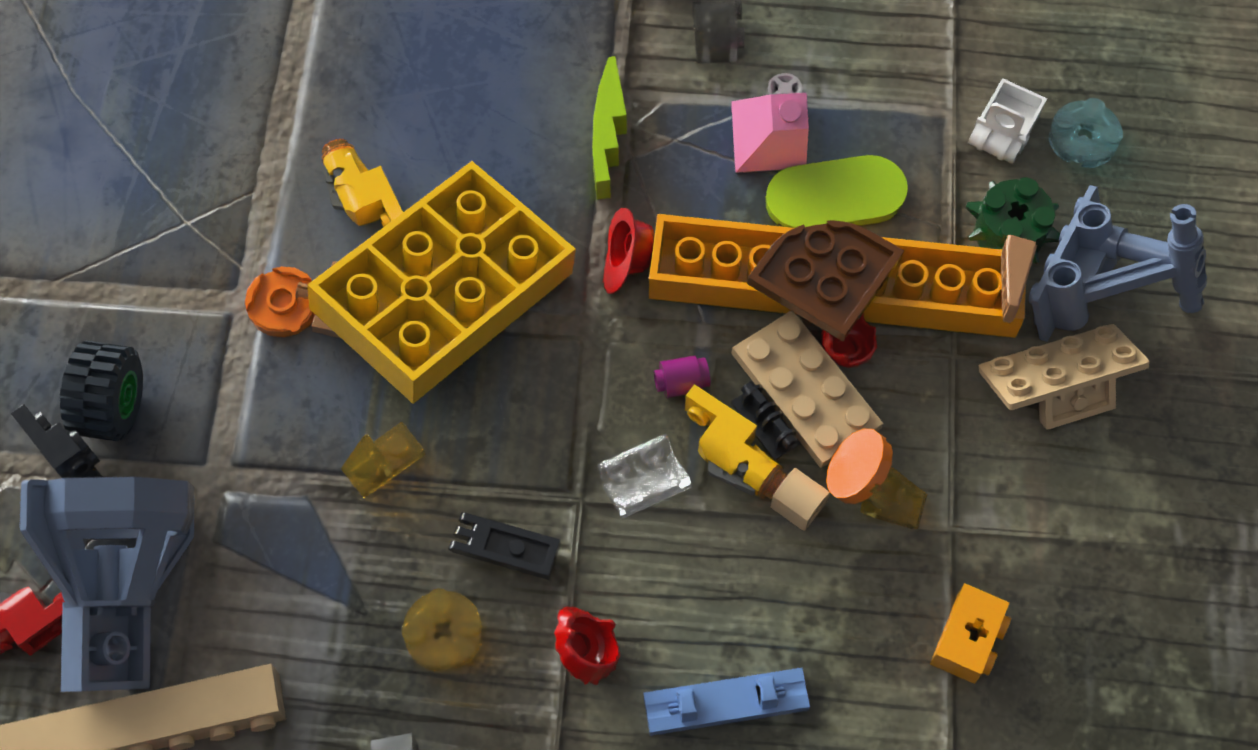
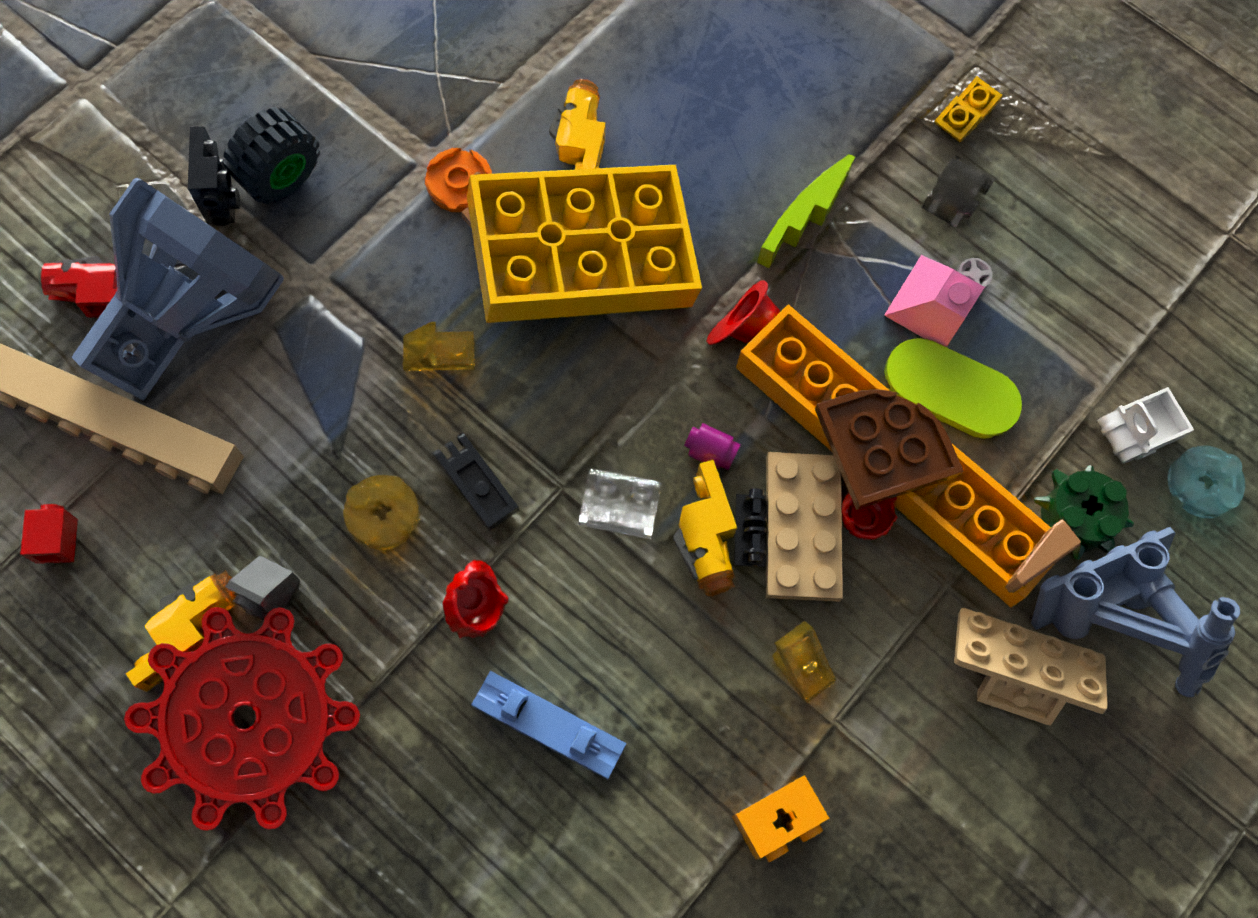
camera: 30 degrees right, 5 degrees up
(799, 499) = (728, 609): tan piece -> none
(859, 465) = (791, 619): orange tile -> none

